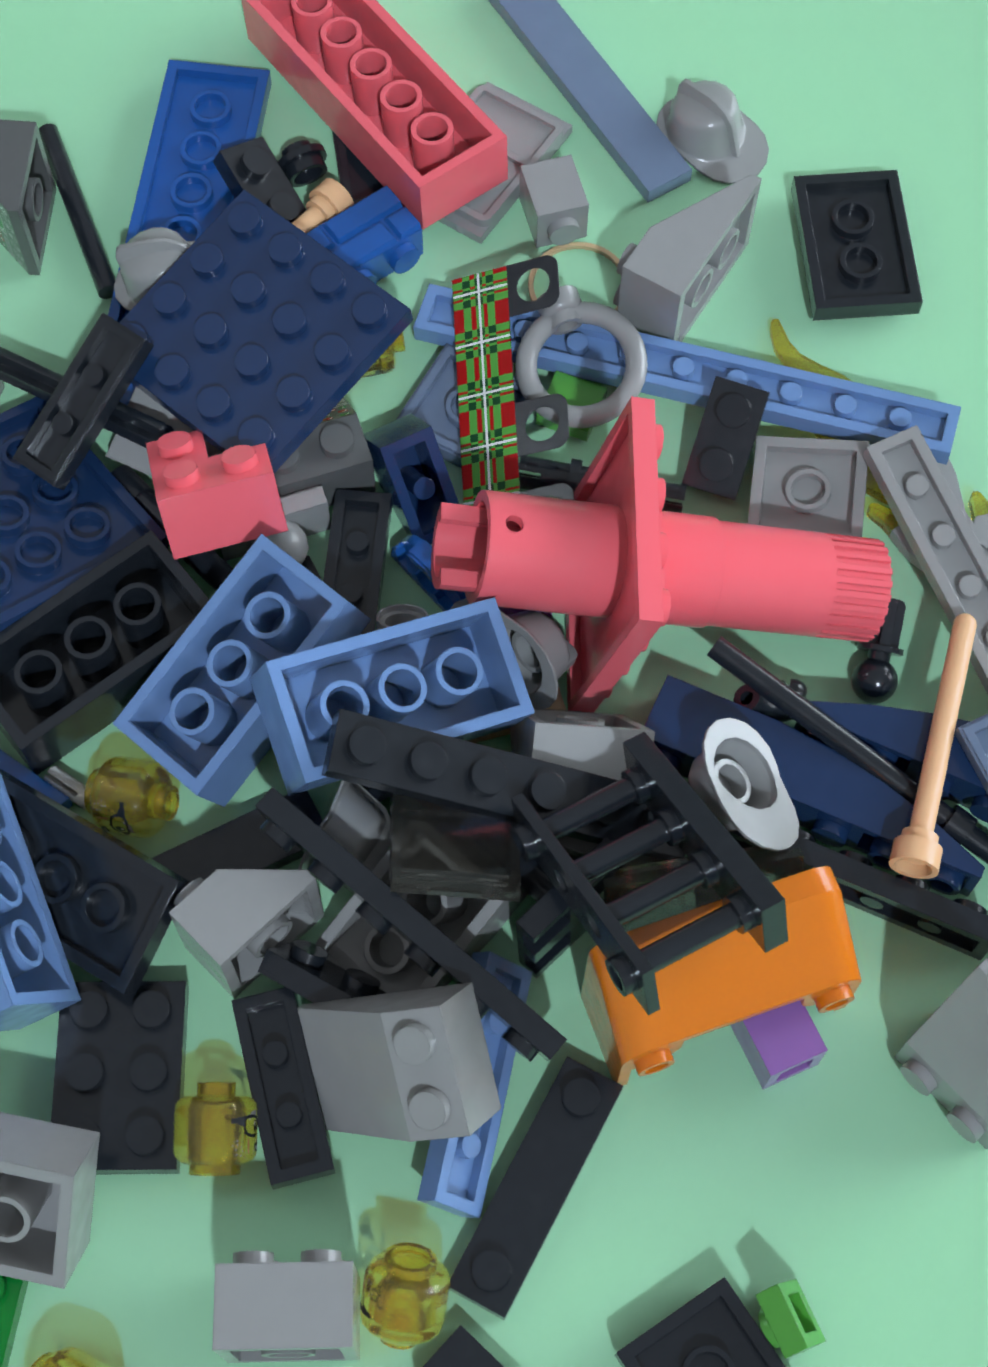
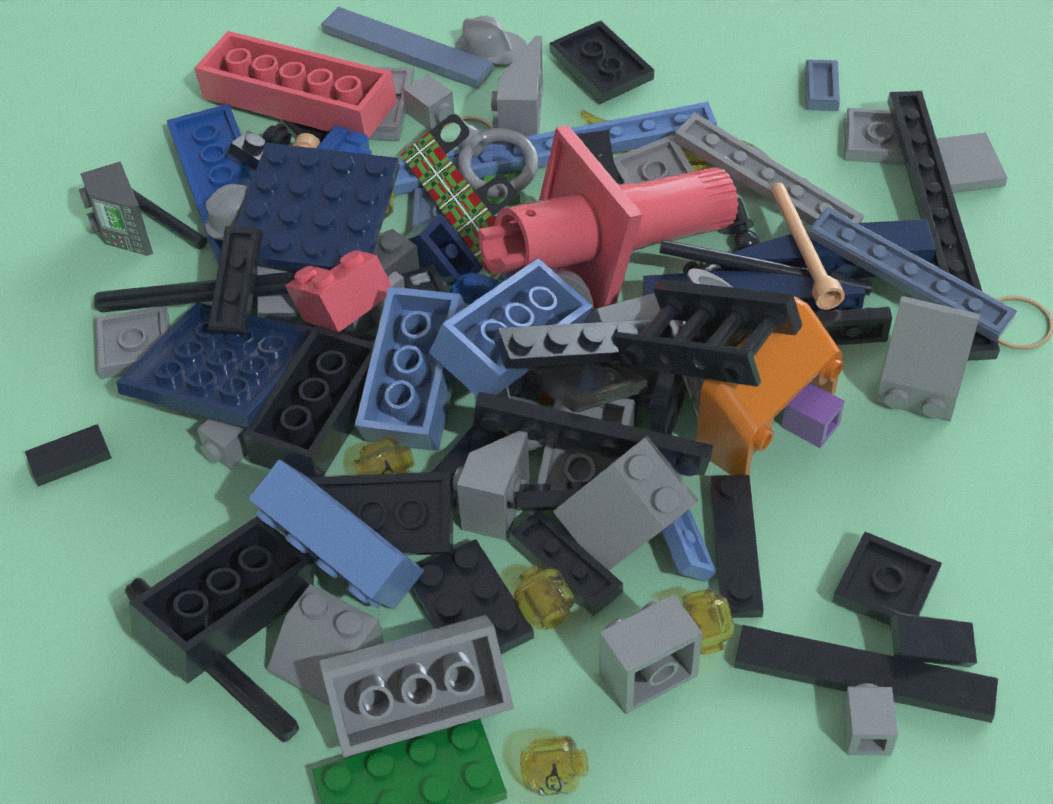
camera: 25 degrees left, 15 degrees down
(788, 1319) = (910, 535): bright green plate -> none

